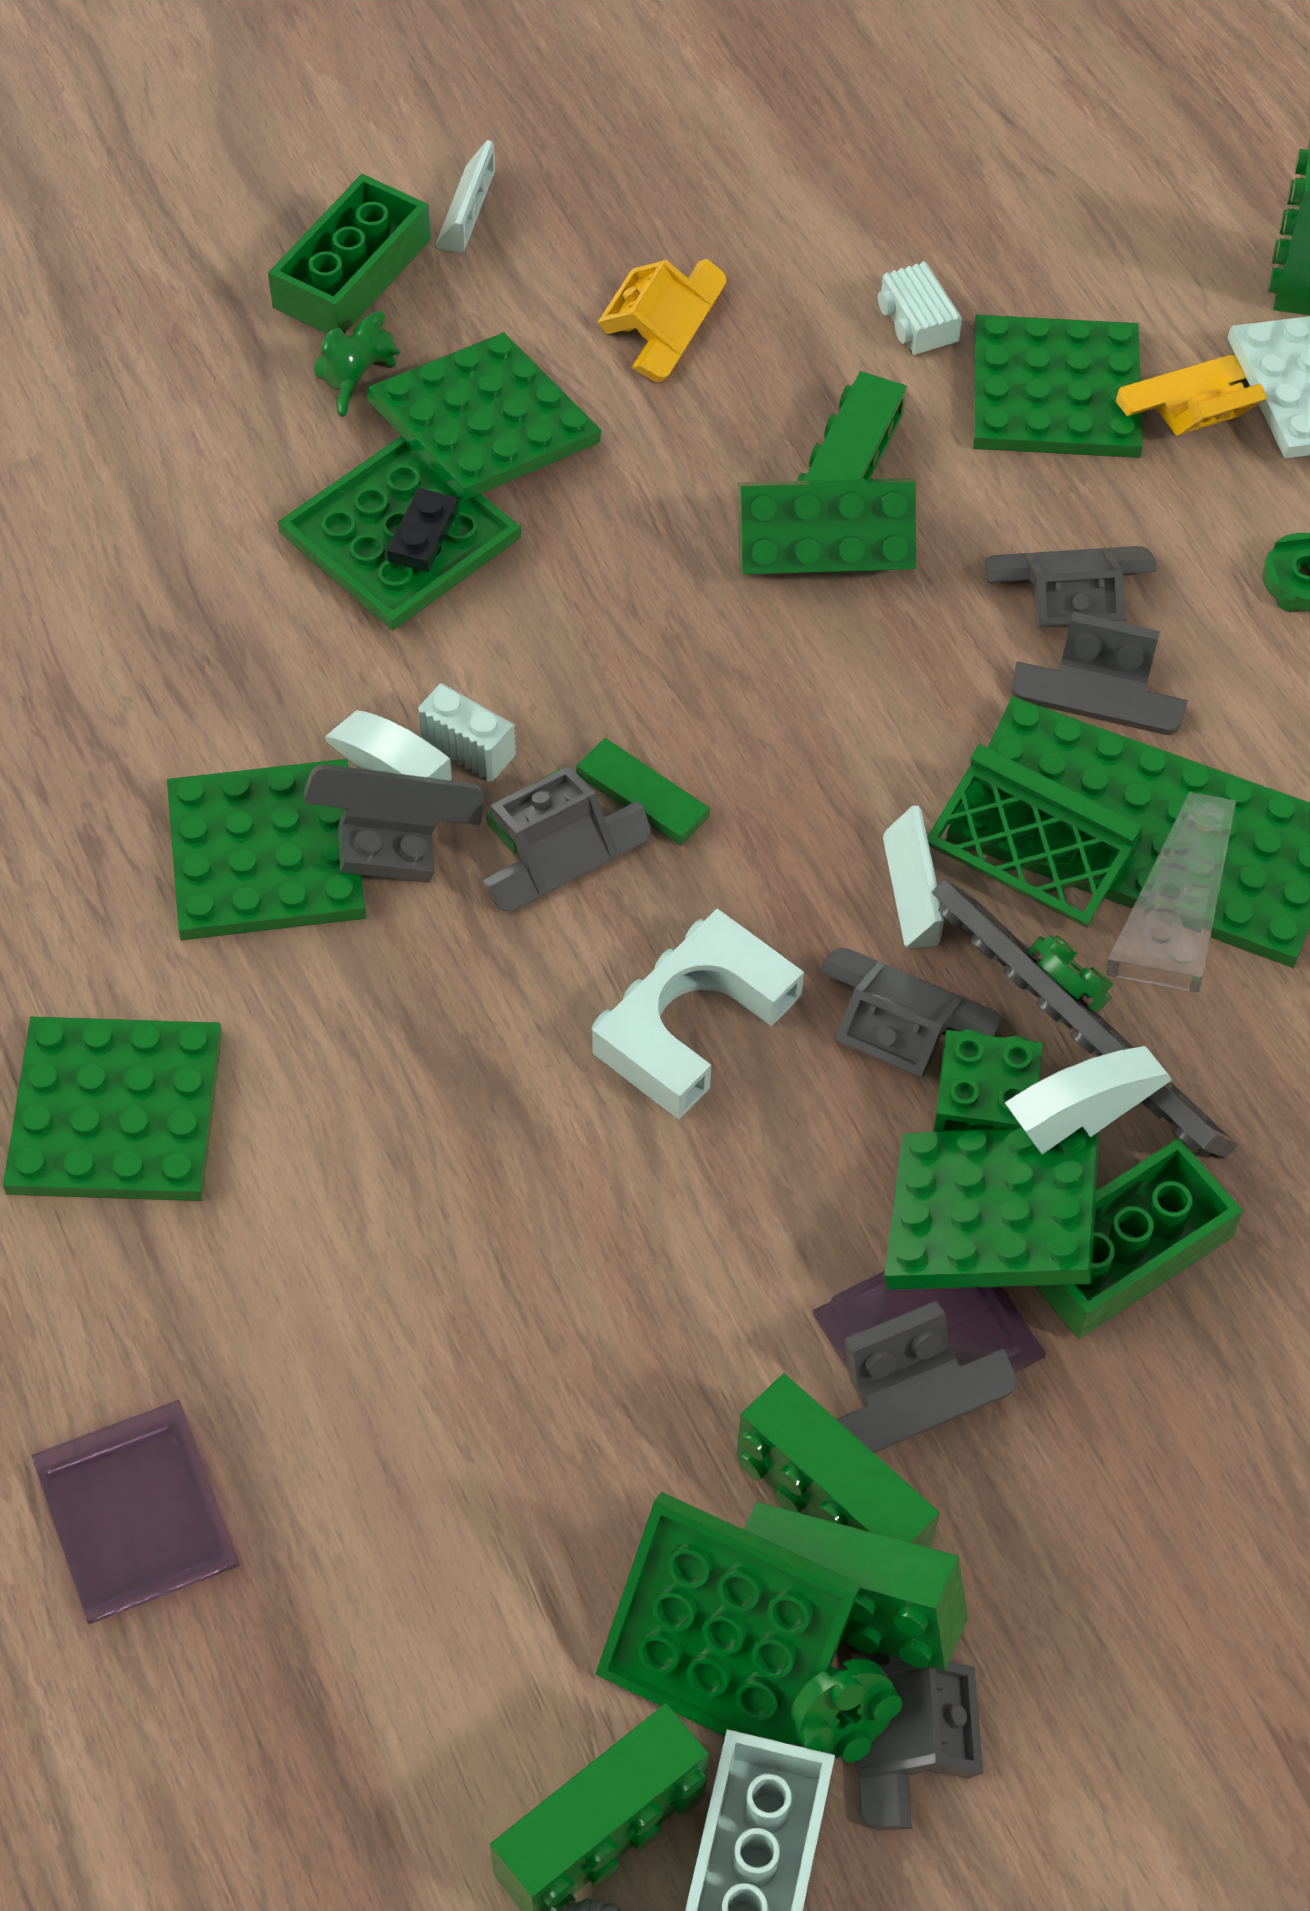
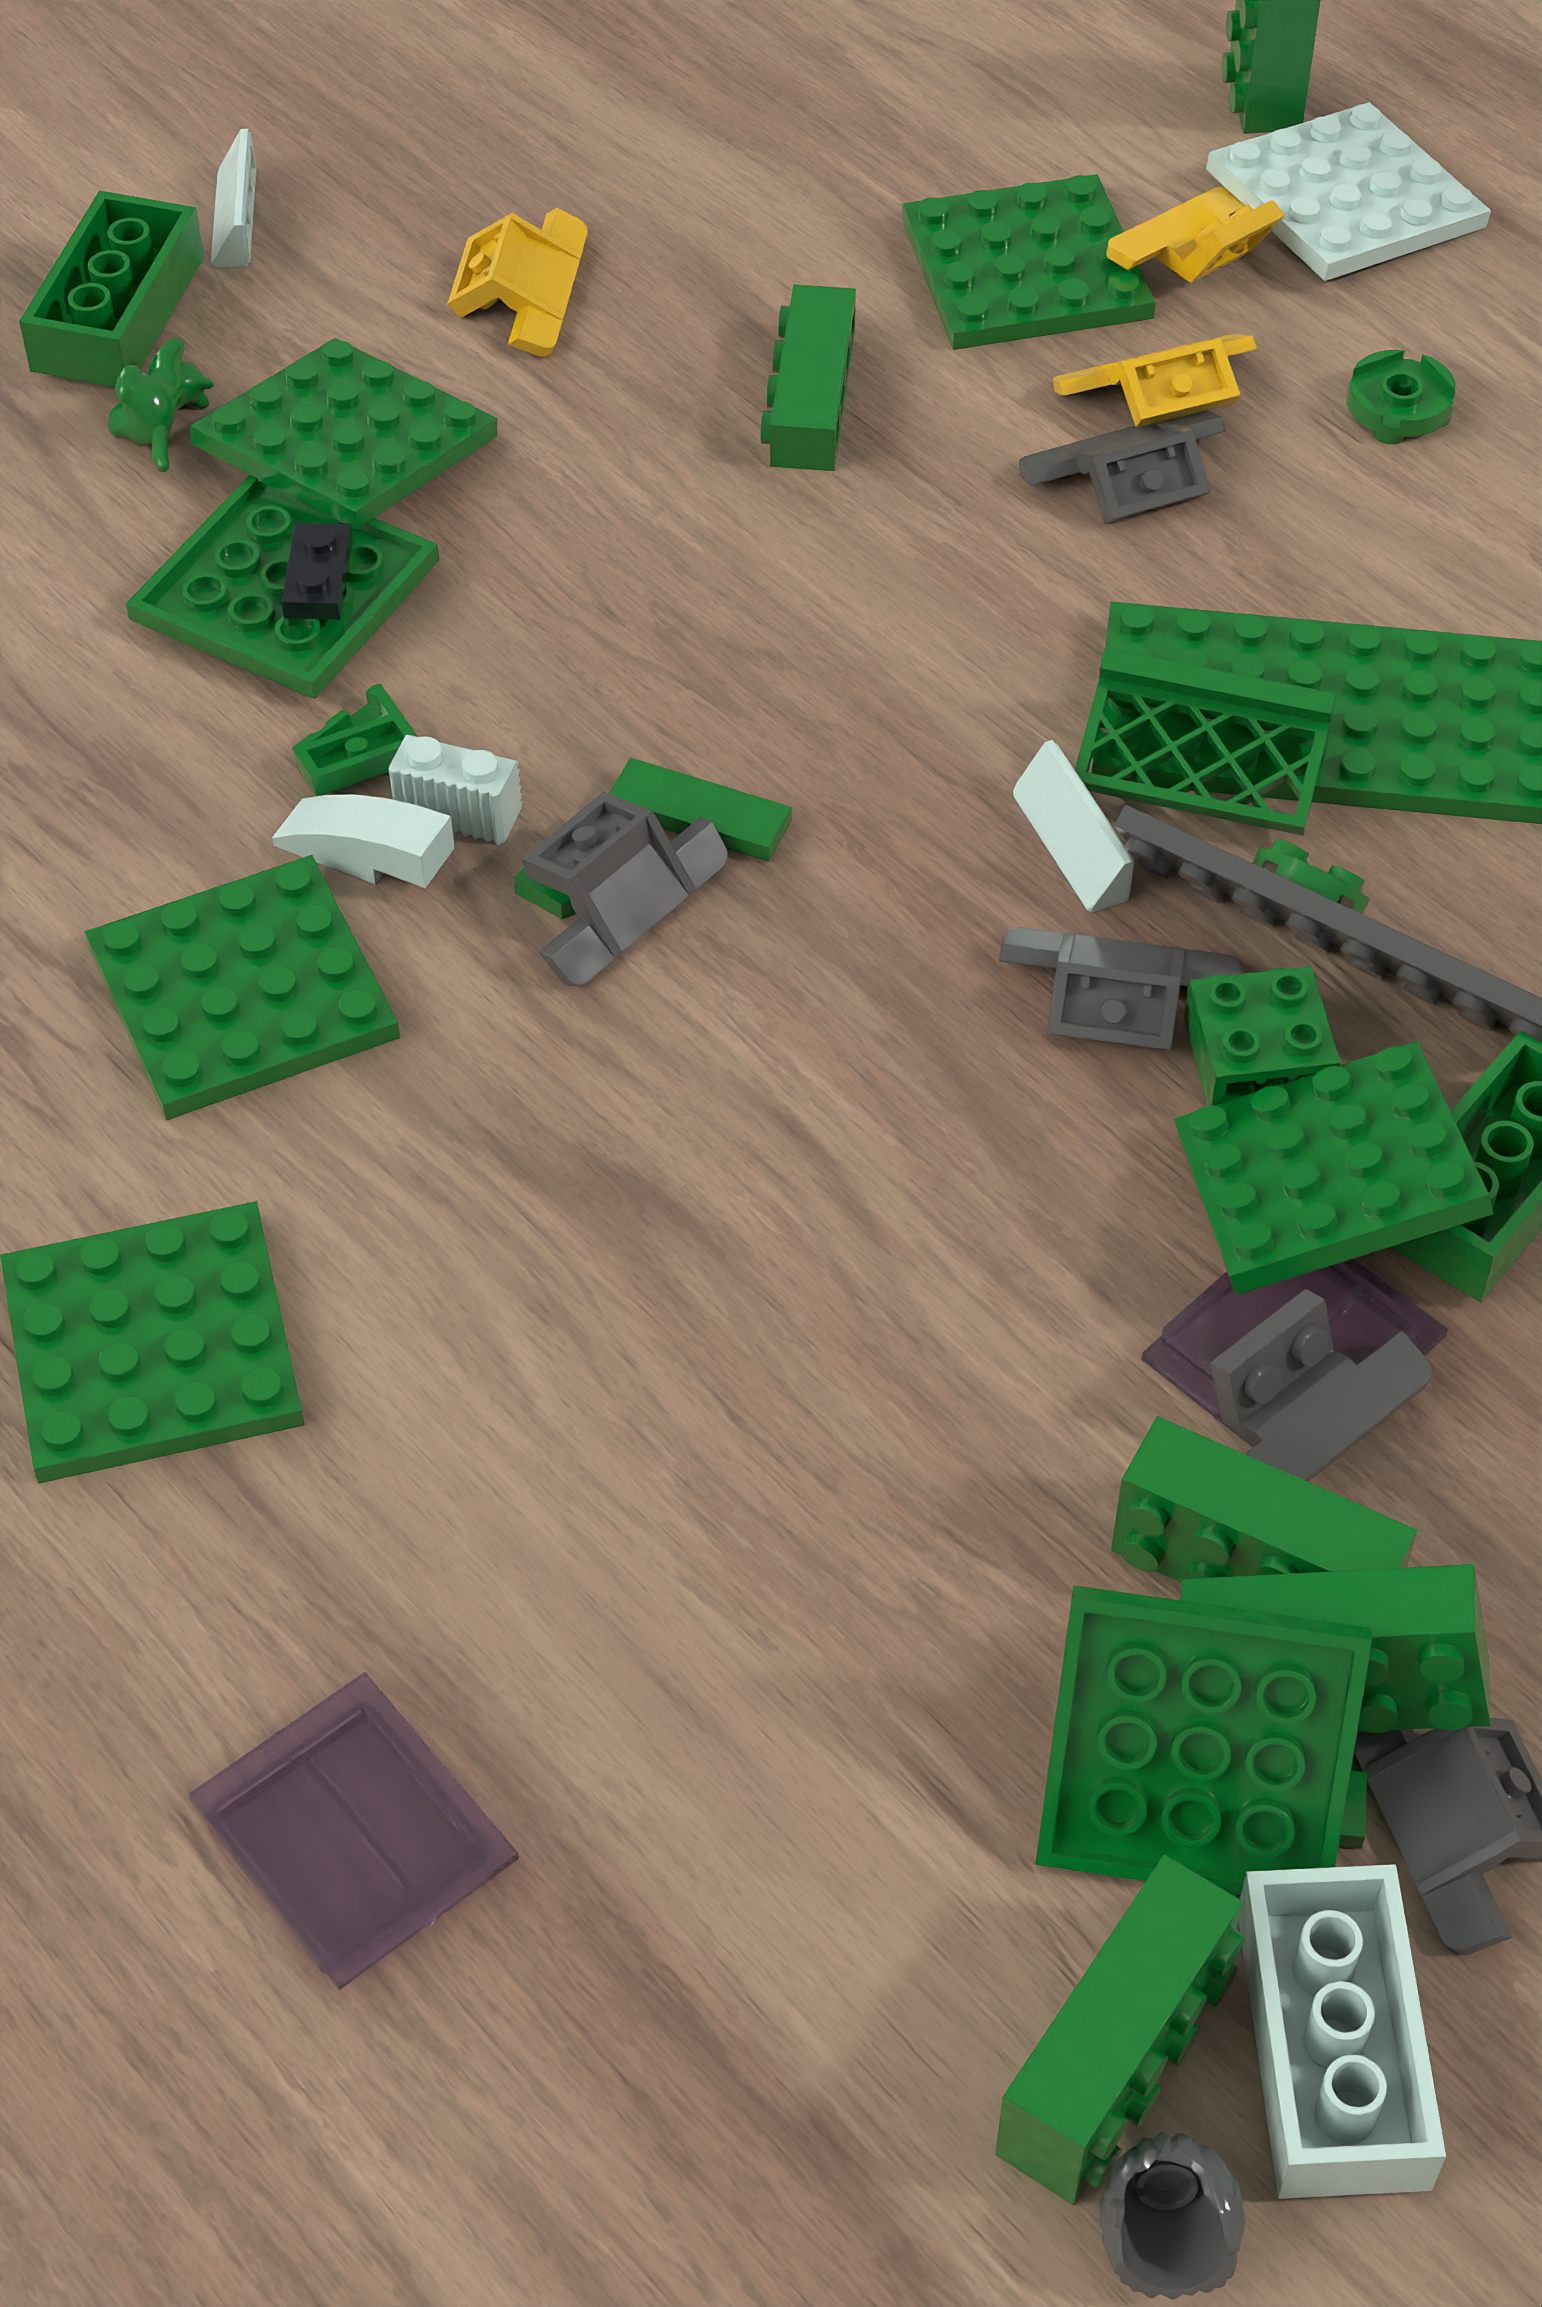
camera: 15 degrees left, 5 degrees down
(390, 817) = (398, 902): dark grey plate -> none
(406, 676) = (353, 745): none -> green wing
(712, 957) = (861, 974): light aqua arch -> none
(827, 525) = (819, 456): green brick -> none
(867, 1707) = (1385, 1805): green plate -> none
(919, 308) = (834, 209): light aqua brick -> none
(1087, 1095) = (1397, 1005): light aqua slope -> none
(1103, 677) = (1210, 555): dark grey plate -> none
(1125, 517) = (1168, 381): none -> yellow plate
(1175, 912) = (1411, 783): clear wedge -> none

